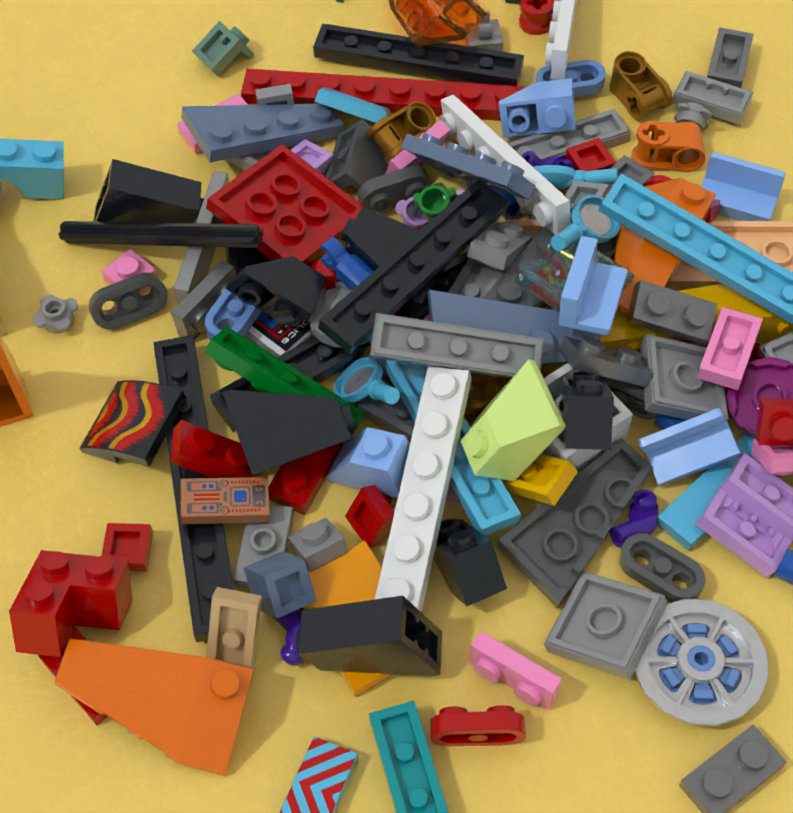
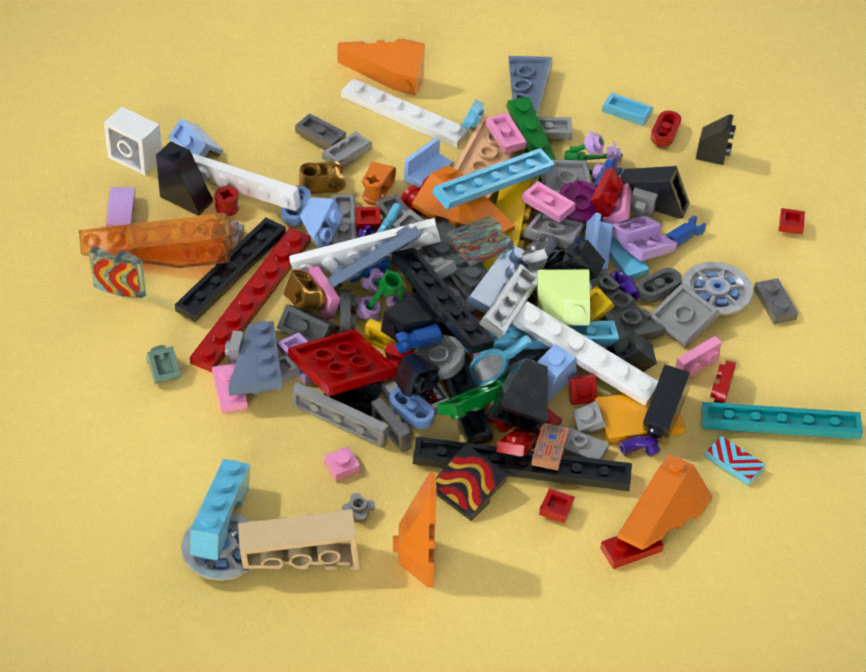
camera: 75 degrees left, 10 degrees down
(68, 593) = (589, 532): red brick -> none
(127, 302) = (371, 466): dark grey plate -> none
(146, 195) = (292, 437): black slope -> none
(162, 234) = (332, 429): black axle -> none
(234, 627) = (640, 458): tan plate -> none
(281, 583) = (613, 437): sand blue panel -> none
(351, 104) = (264, 309): medium azure tile -> none
(587, 223) = (446, 223): medium azure piece -> none
(591, 291) = (504, 230): light blue panel -> none
(672, 312) = (517, 213): flat silver plate -> none
(693, 113) = (360, 164): light grey plate -> none

